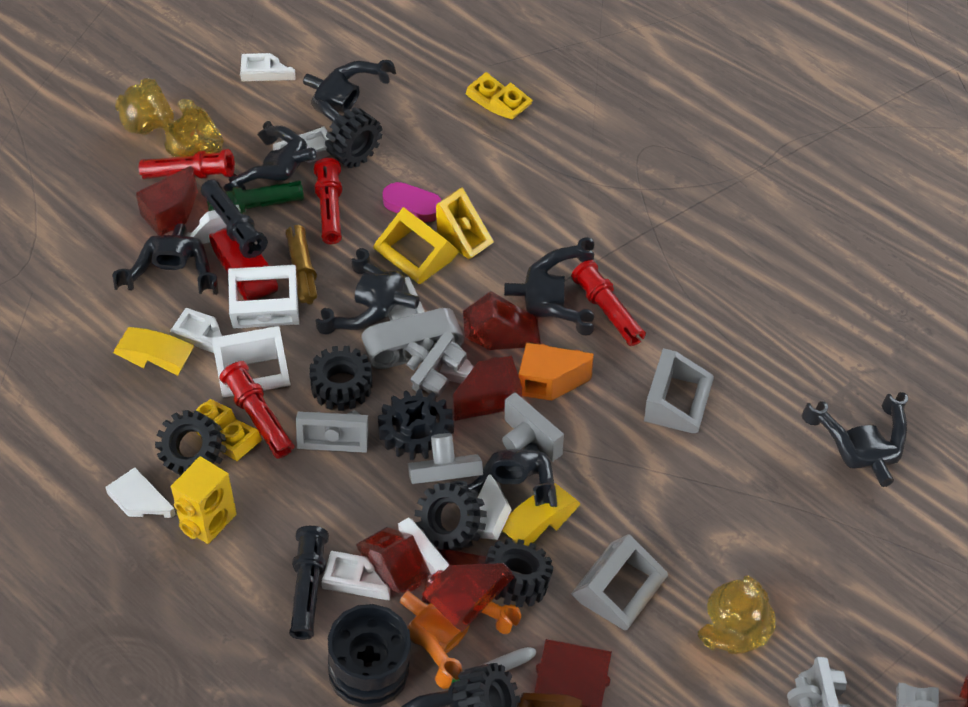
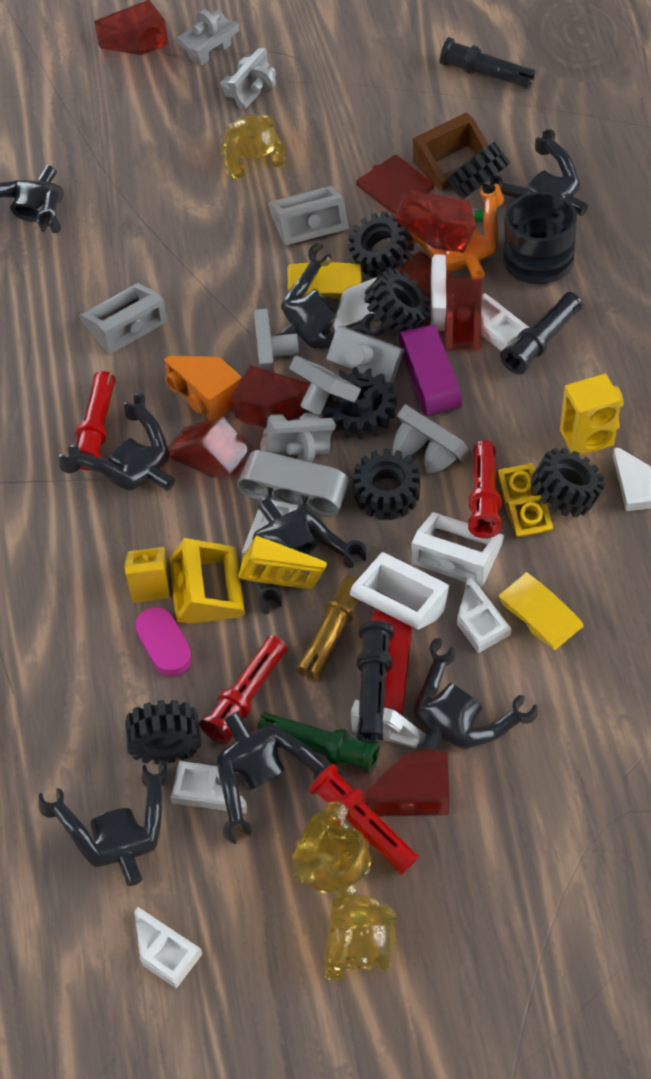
camera: 140 degrees left, 5 degrees up
(372, 257) = (275, 563): none -> yellow slope
(377, 485) = (430, 370): none -> magenta beam
(443, 393) = (322, 384): none -> light grey tile

